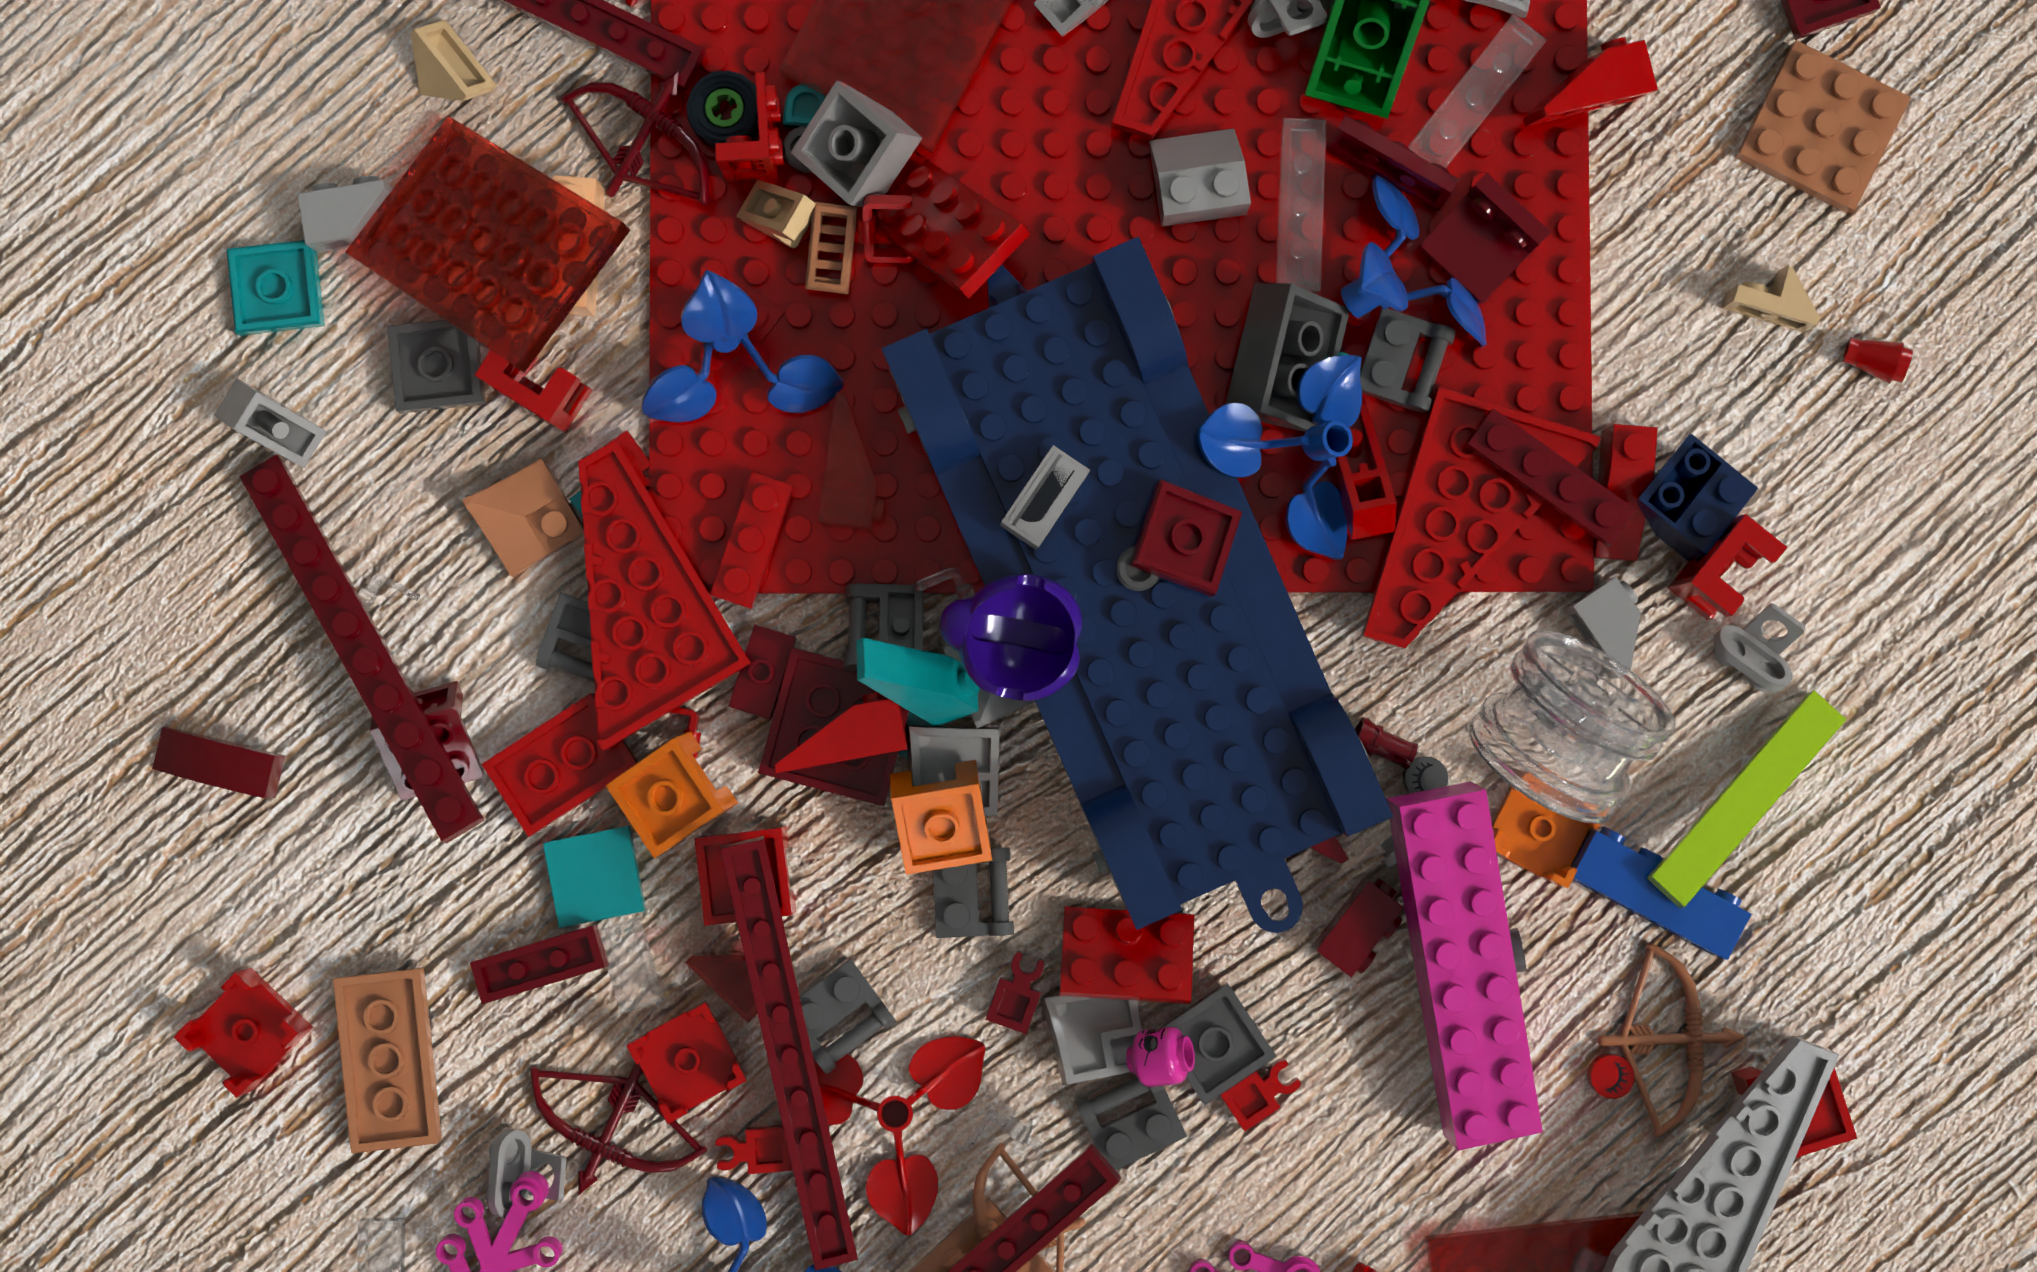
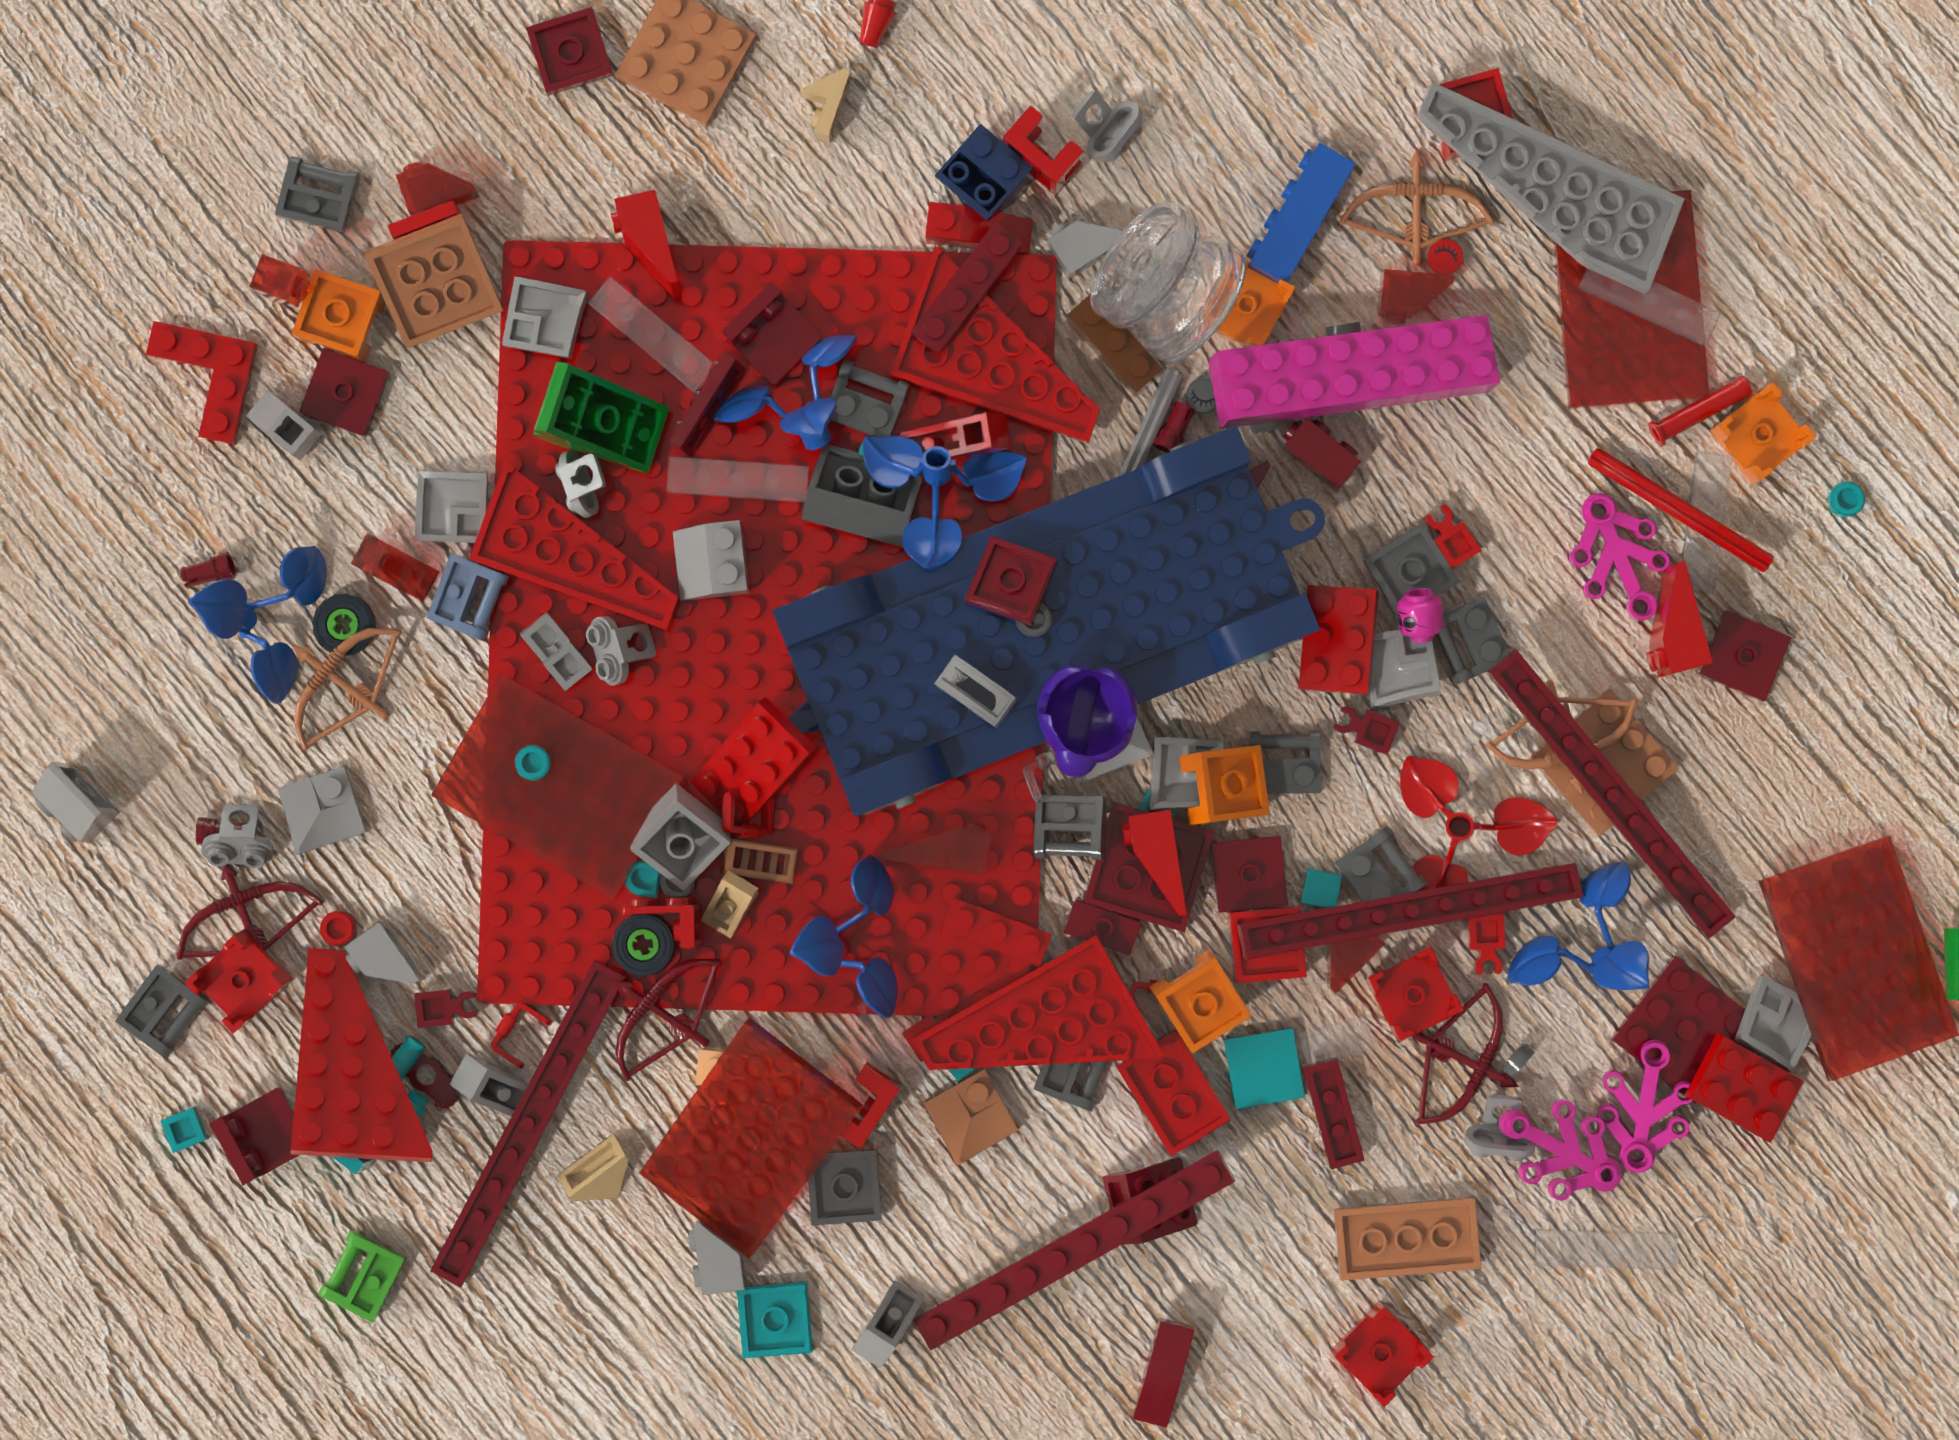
camera: 80 degrees left, 0 degrees up
(610, 1193) = (1518, 1060): none -> dark grey tile
(817, 941) = (1321, 888): none -> teal tile
(833, 851) = (1249, 874): none -> dark red plate
(917, 680) = (1116, 797): teal slope -> none
(1085, 58) = (612, 648): none -> light grey bracket
(1394, 717) = (1153, 420): none -> light grey axle
(1481, 666) = (1115, 348): none -> reddish brown brick
(1564, 1031) = (1408, 293): none -> clear red slope
(1746, 799) = (1227, 141): lime tile -> none

